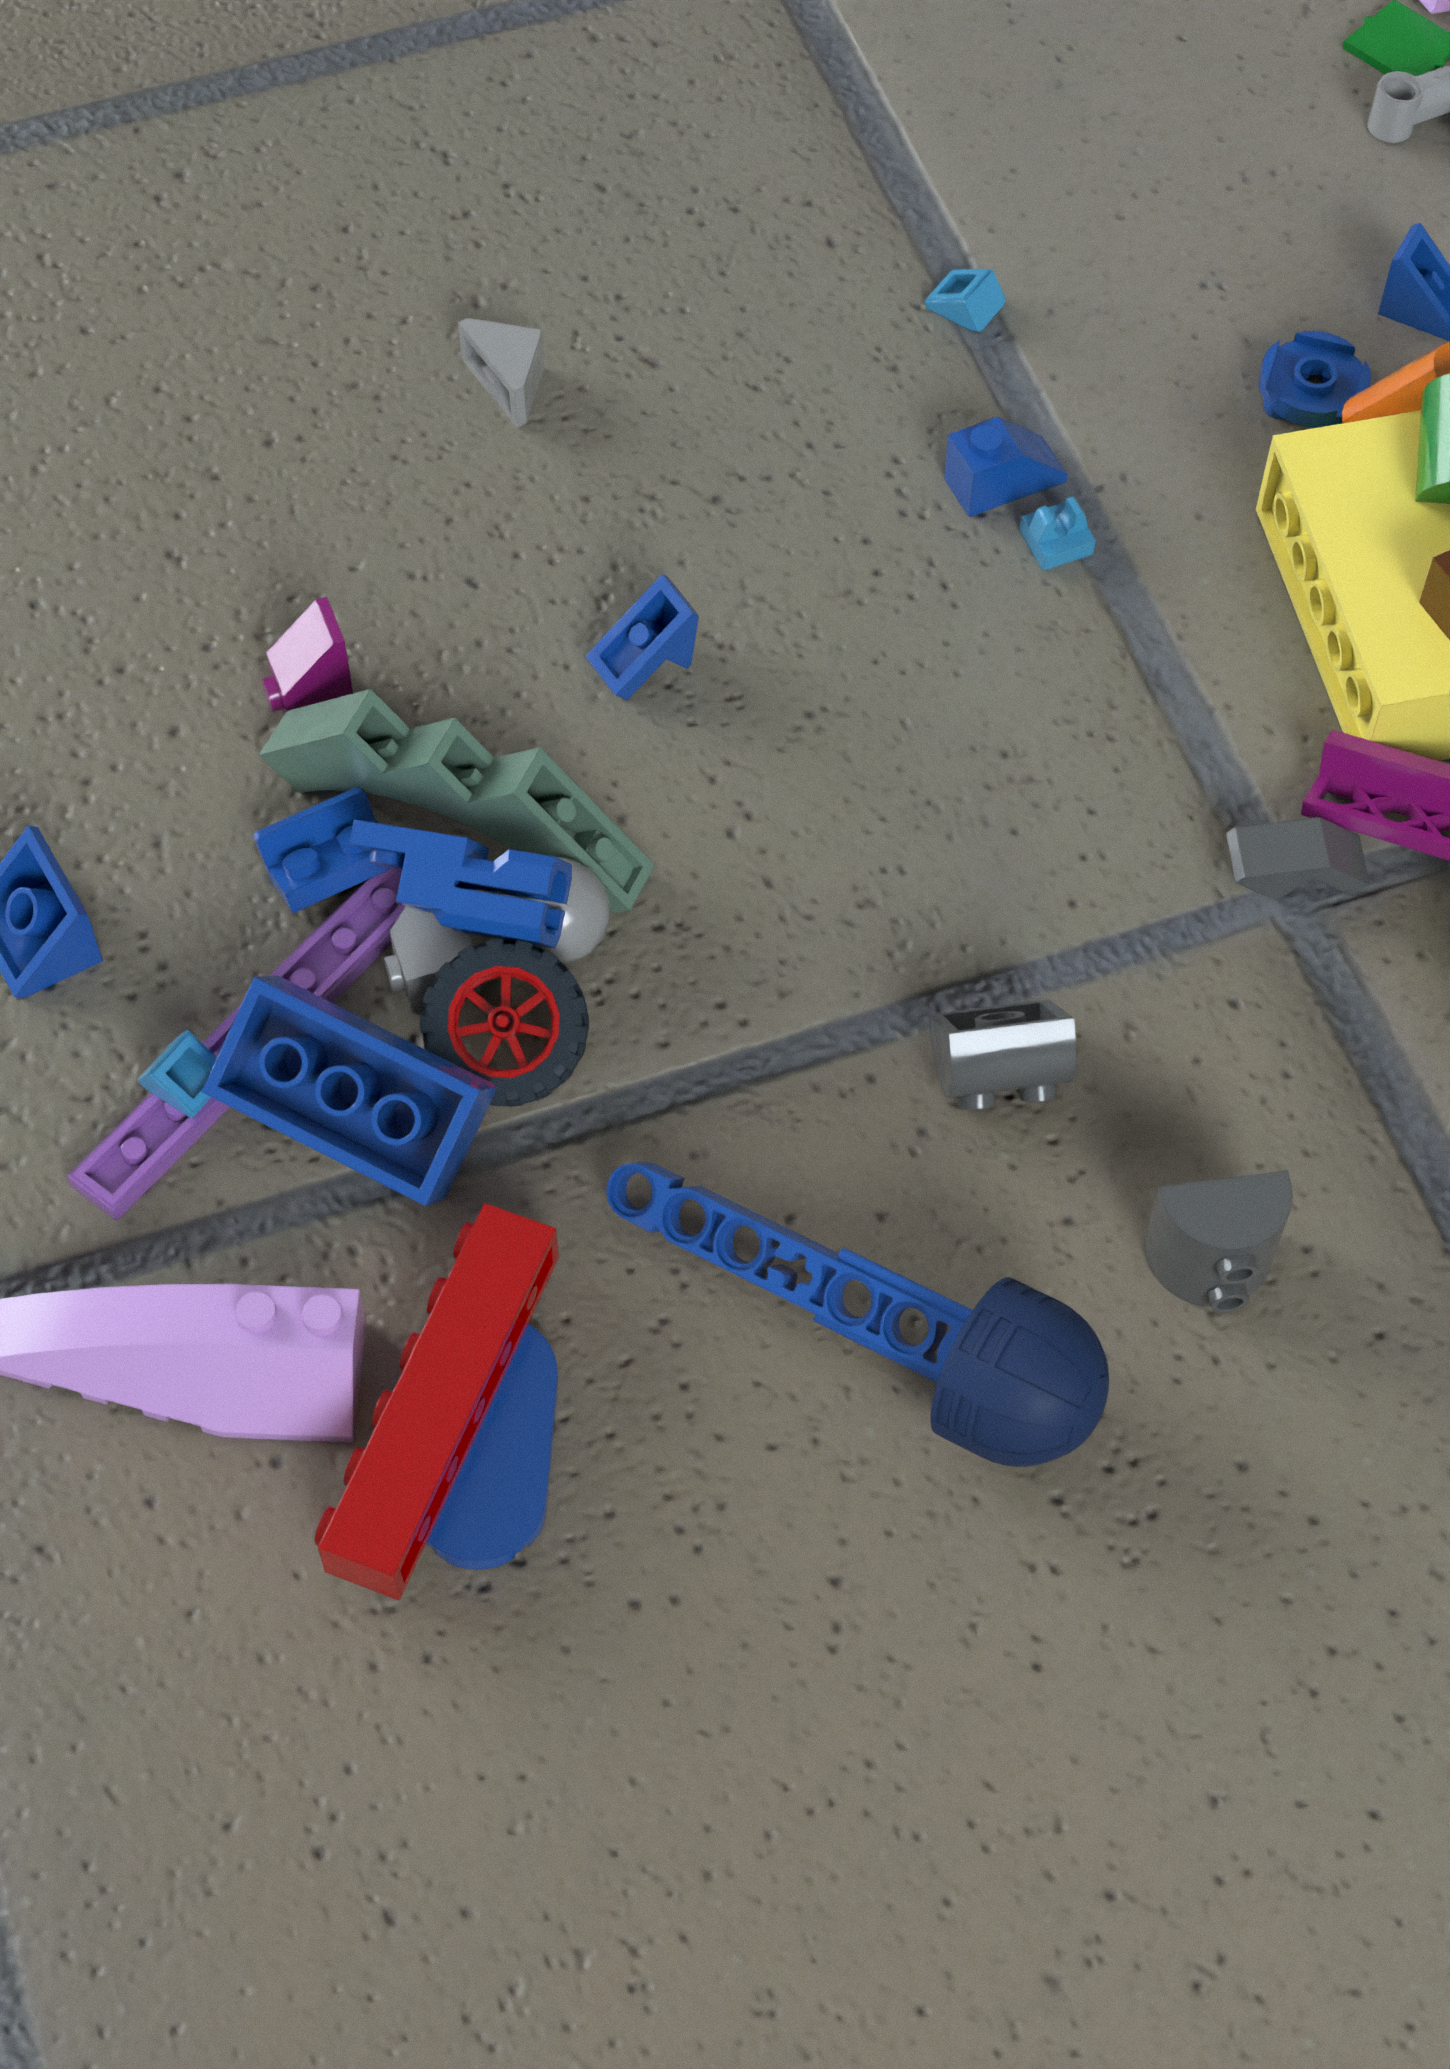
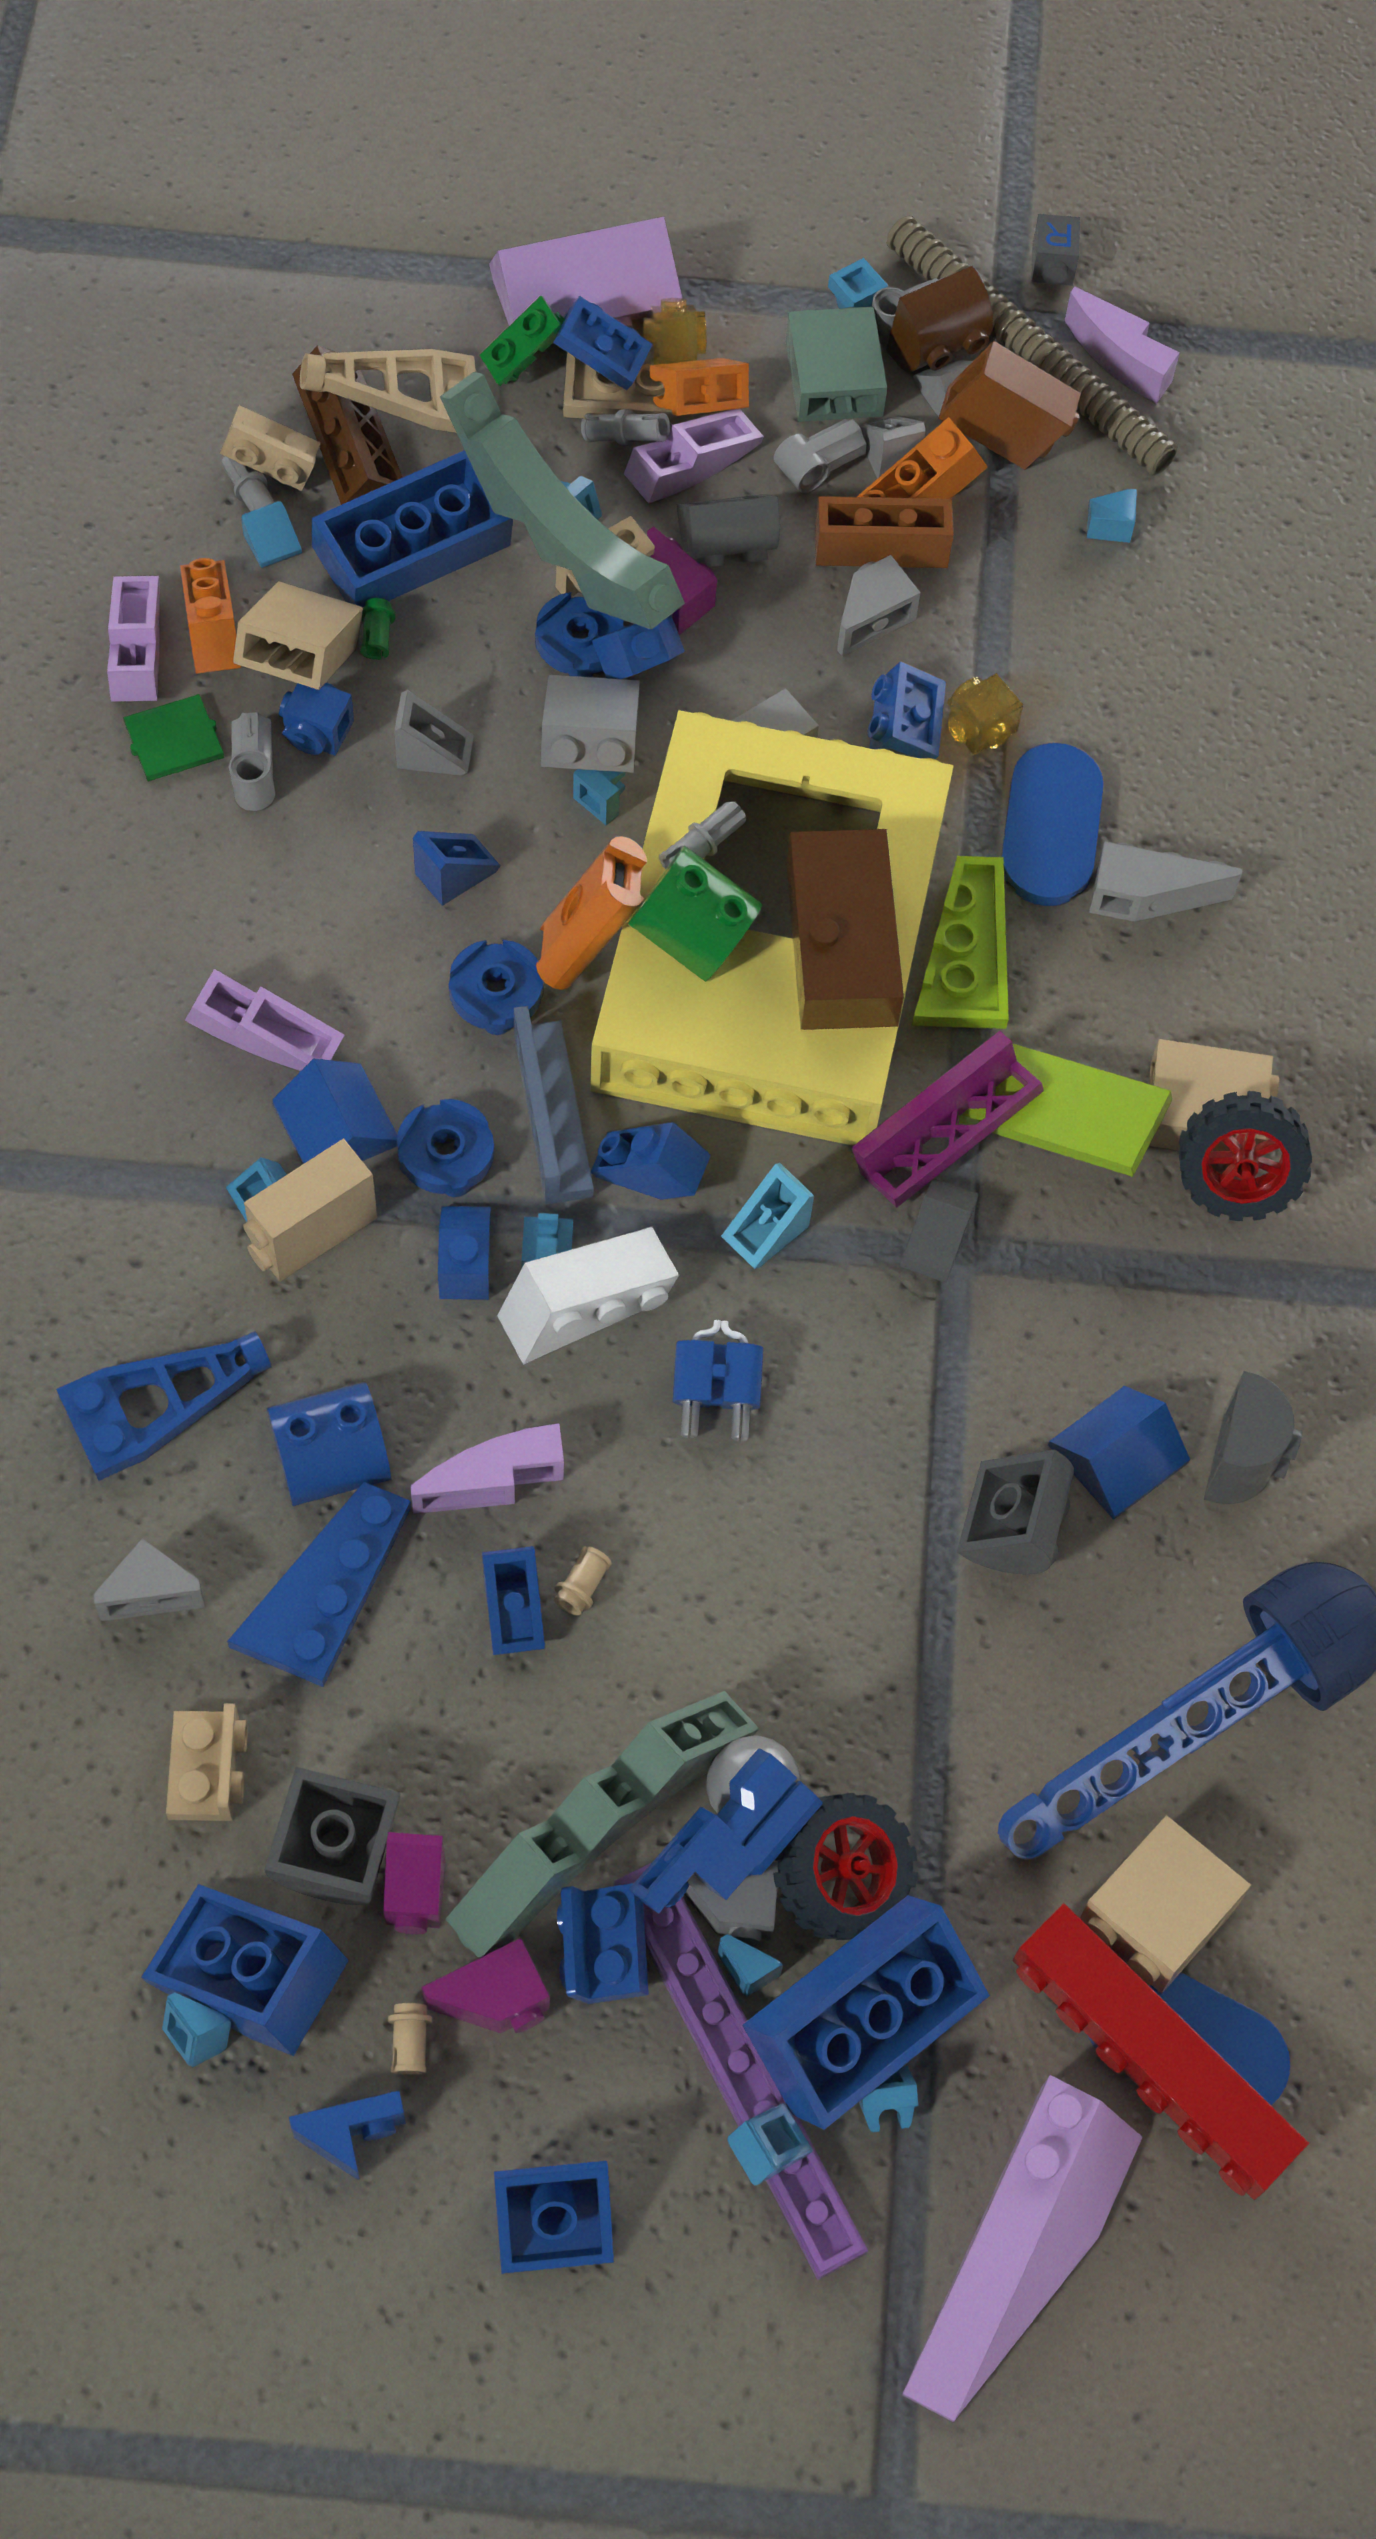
camera: 70 degrees left, 5 degrees up
(43, 718) = (331, 2129): none -> blue slope
(90, 569) = (195, 2029): none -> dark azure slope
(161, 739) = (409, 2038): none -> tan pin
(168, 590) = (248, 1966): none -> blue slope
(239, 783) = (492, 1991): none -> magenta slope
(289, 1163) = (895, 2093): none -> dark azure tile
(316, 564) = (331, 1837): none -> dark grey brick
(357, 483) = (203, 1765): none -> tan bracket
(362, 983) = (747, 1965): none -> dark azure slope
(573, 503) = (321, 1595): none -> blue wing
(615, 1348) = (1164, 1903): none -> tan brick
(665, 266) = (101, 1422): none -> blue plate
(704, 698) = (576, 1590): none -> tan pin
(729, 441) = (329, 1443): none -> blue brick
(778, 577) = (490, 1471): none -> lavender slope
(954, 317) = (310, 1210): none -> tan brick
(995, 724) = (717, 1377): none -> blue piece
(1018, 572) = (585, 1291): none -> white wedge
(1083, 317) = (334, 1103): none -> blue slope
(1099, 434) = (448, 1173): none -> blue plate
(1138, 219) = (262, 1023): none -> lavender slope
(1143, 1133) = (1123, 1449): none -> blue slope
(1203, 575) = (652, 1161): none -> blue slope
(1207, 701) = (770, 1217): none -> medium azure slope
(1208, 478) = (552, 1109): none -> sand blue fence

